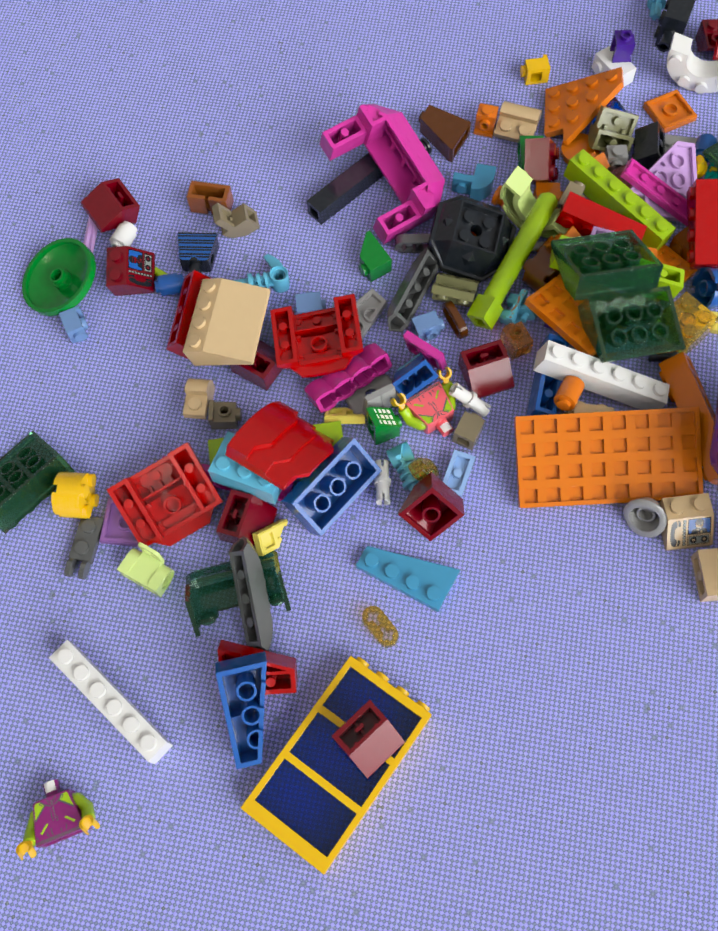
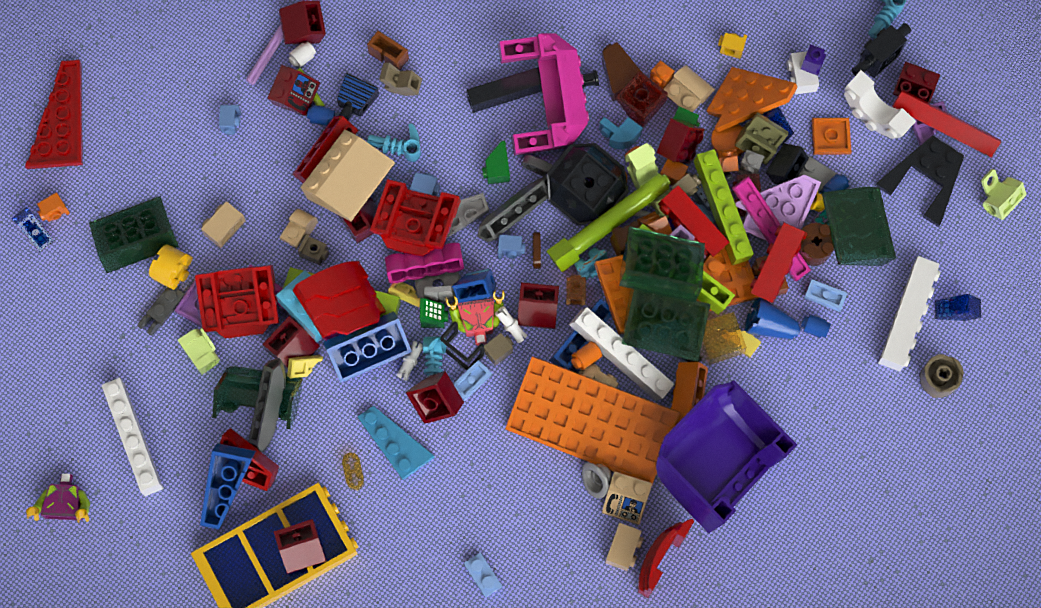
camera: 20 degrees right, 5 degrees up
(58, 276) = (233, 71): green dish -> none
(114, 428) = (223, 224): none -> tan brick
(412, 436) = (447, 342): none -> black piece
(417, 345) = (495, 268): dark pink tile -> none
(422, 467) = (444, 363): clear yellow beam -> none
(454, 288) = (550, 223): olive brick -> none
(480, 142) = (641, 99): none -> clear red slope
(581, 676) = (482, 575): none -> light blue plate

